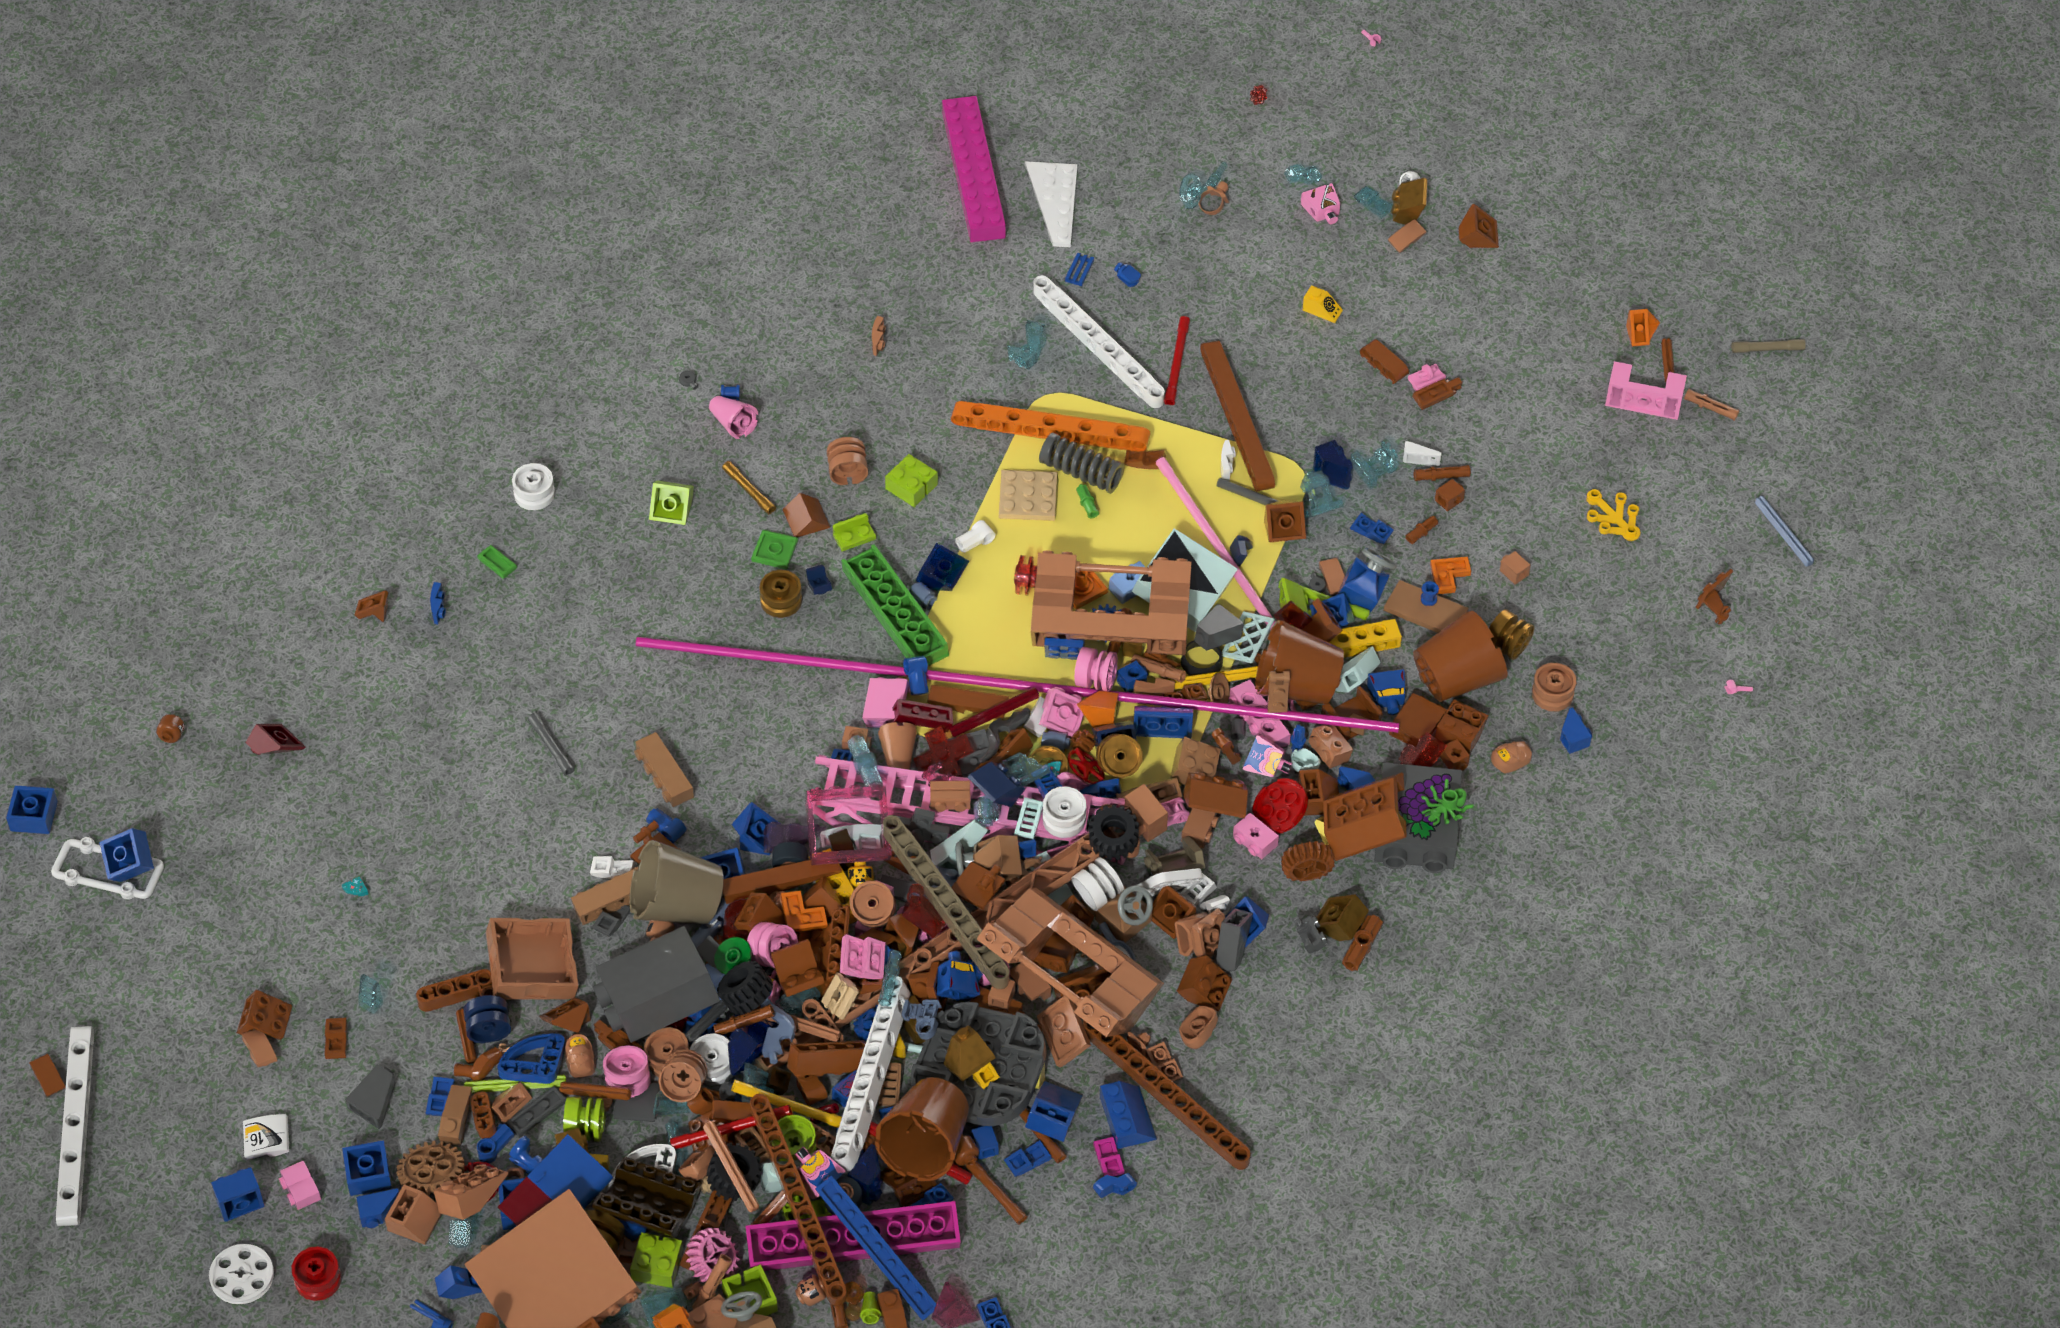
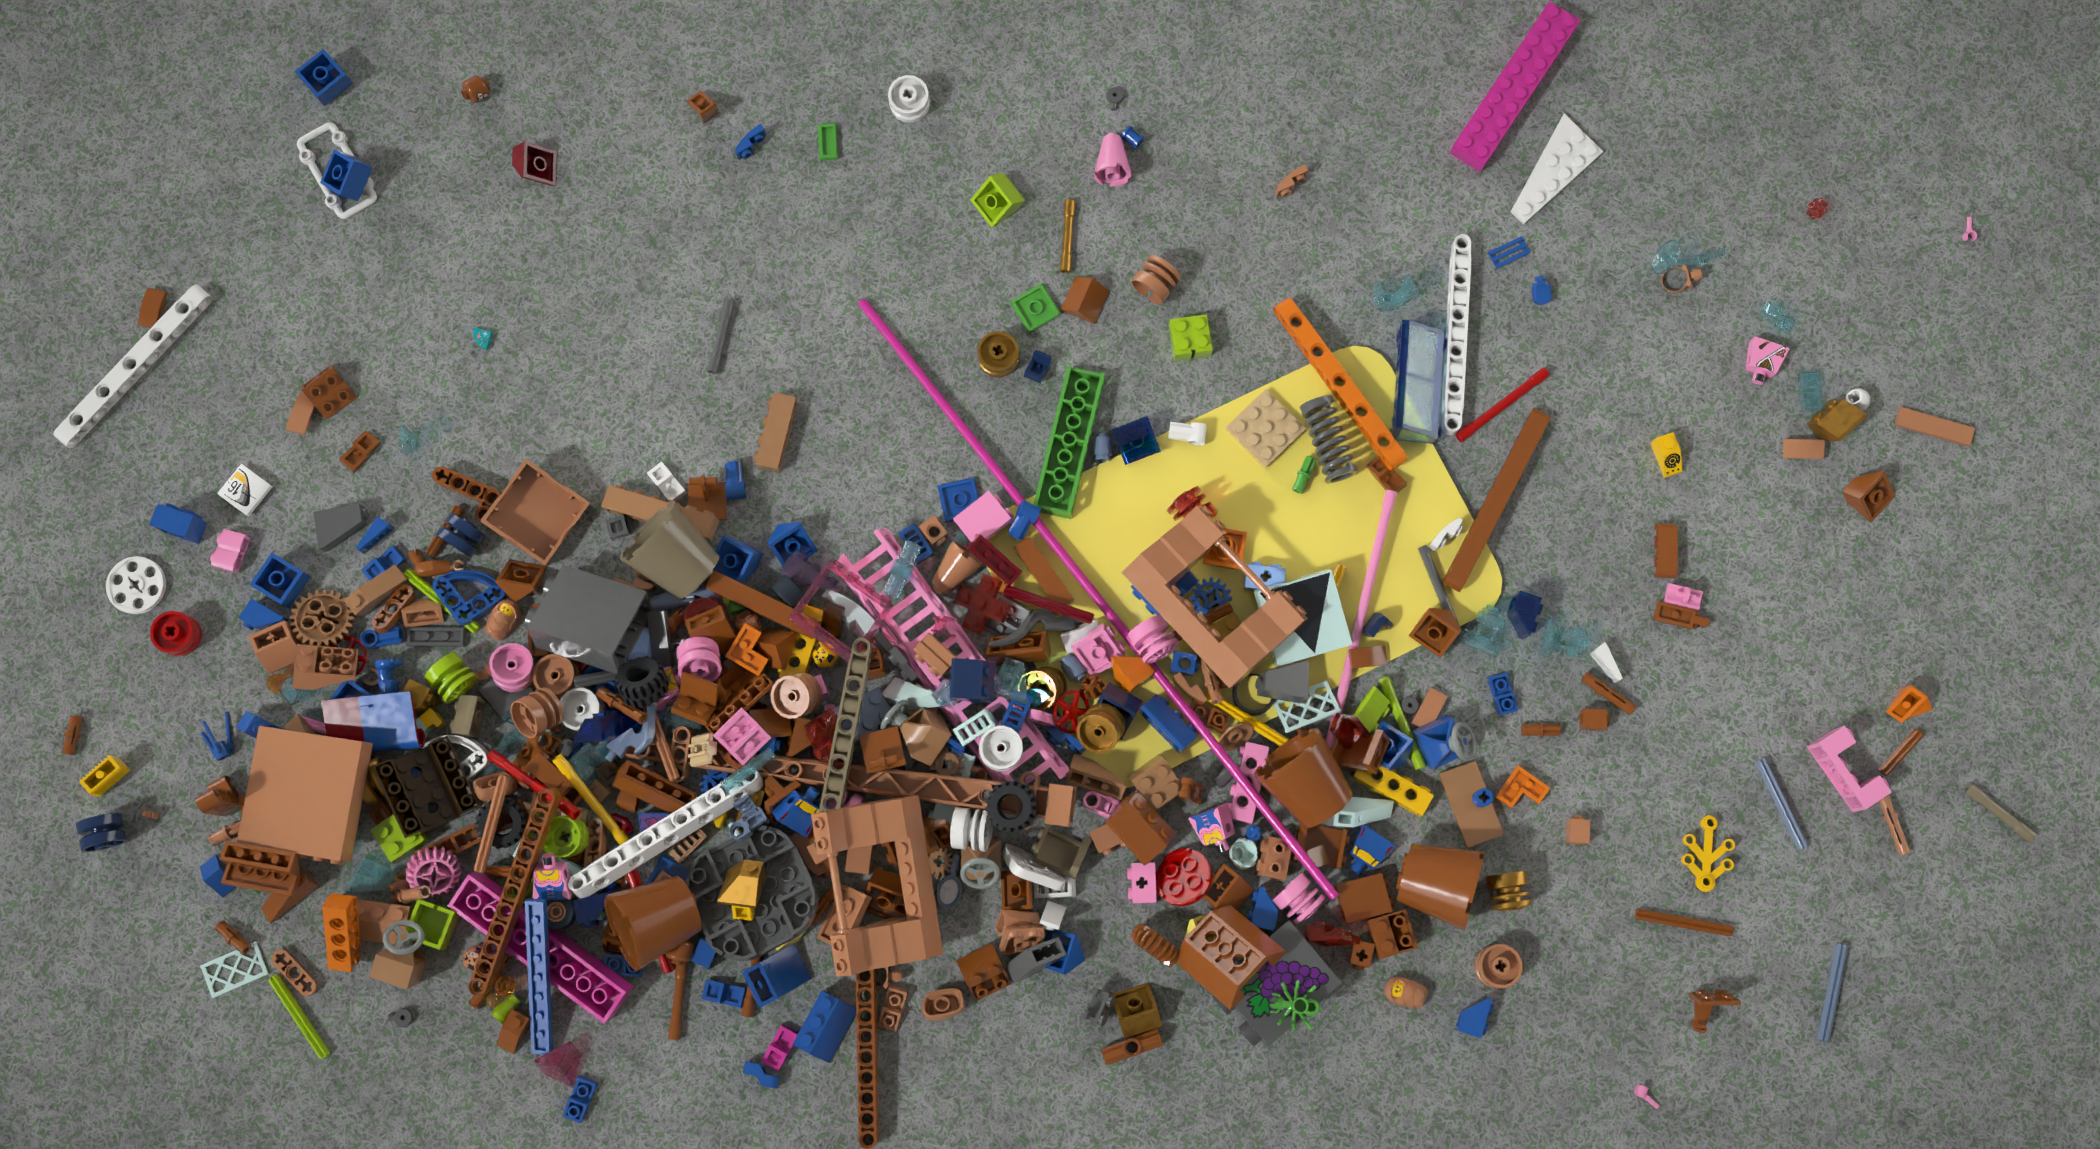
camera: 45 degrees right, 25 degrees up
(412, 1074) = (374, 534): none -> blue slope
(440, 1237) = (275, 678): none -> clear orange plate
(595, 1090) = (479, 662): dark orange axle -> none
(623, 1133) = (468, 716): none -> dark tan slope
(729, 951) = (658, 641): green dish -> none
(848, 708) = (957, 497): none -> blue tile
(853, 532) = (1105, 345): lime bracket -> none
(1104, 384) = (1418, 383): none -> windscreen
(1255, 573) = (1367, 657): none -> dark orange slope
(1278, 692) = (1262, 792): medium nougat plate -> none
(1374, 753) = (1299, 899): none -> bright pink wheel
(1476, 162) = (1934, 426): none -> nougat tile
(1627, 449) = (1782, 804): none -> sand blue axle
(1644, 567) = (1683, 922): none -> dark orange axle

